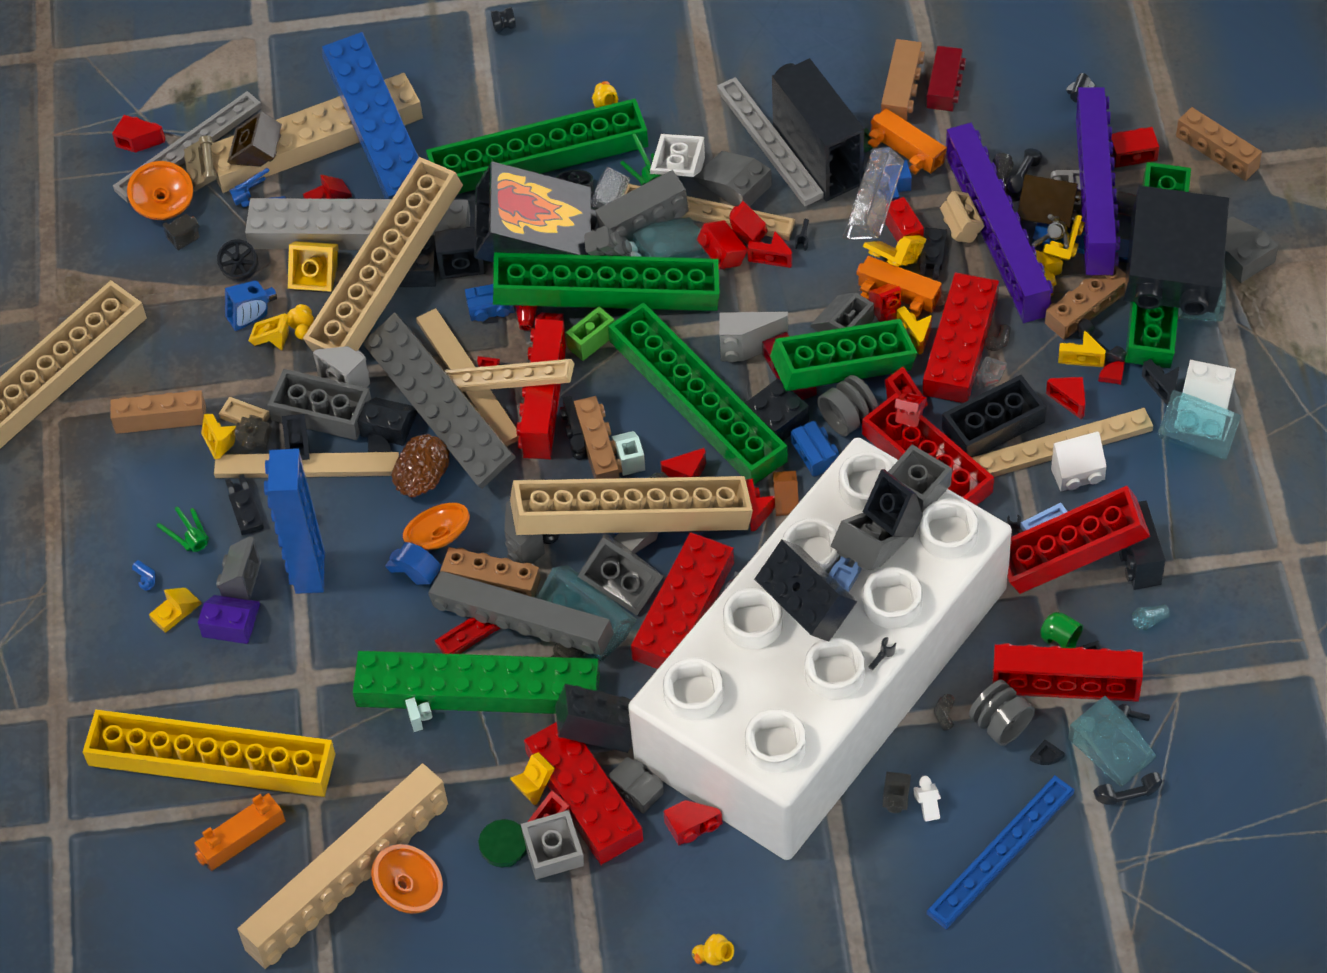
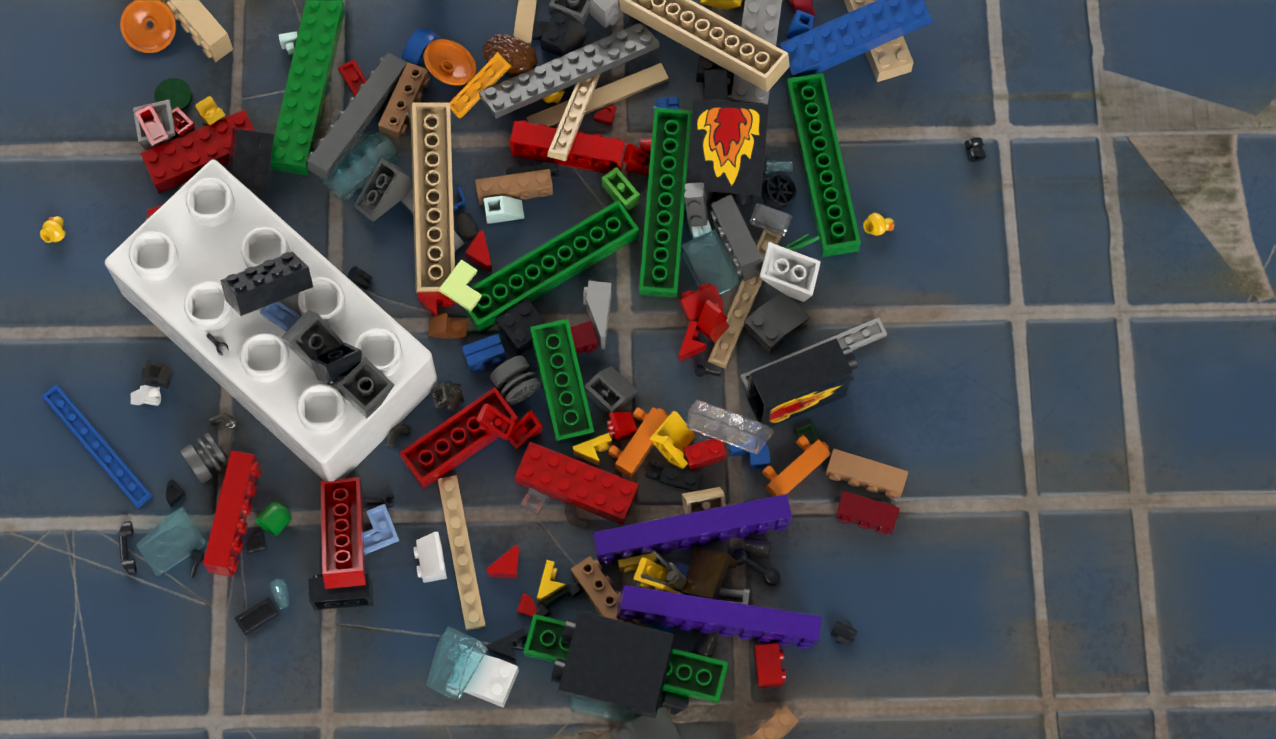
camera: 90 degrees right, 15 degrees up
(361, 183) = (800, 24): none -> blue brick
(466, 490) = (482, 80): none -> light orange tile
(564, 828) = (151, 124): none -> slope
(682, 598) = (352, 237): red brick -> none
(742, 469) = (456, 286): none -> yellowish green tile
(994, 417) = (482, 479): black brick -> none
(1182, 640) = (256, 616): none -> black tile

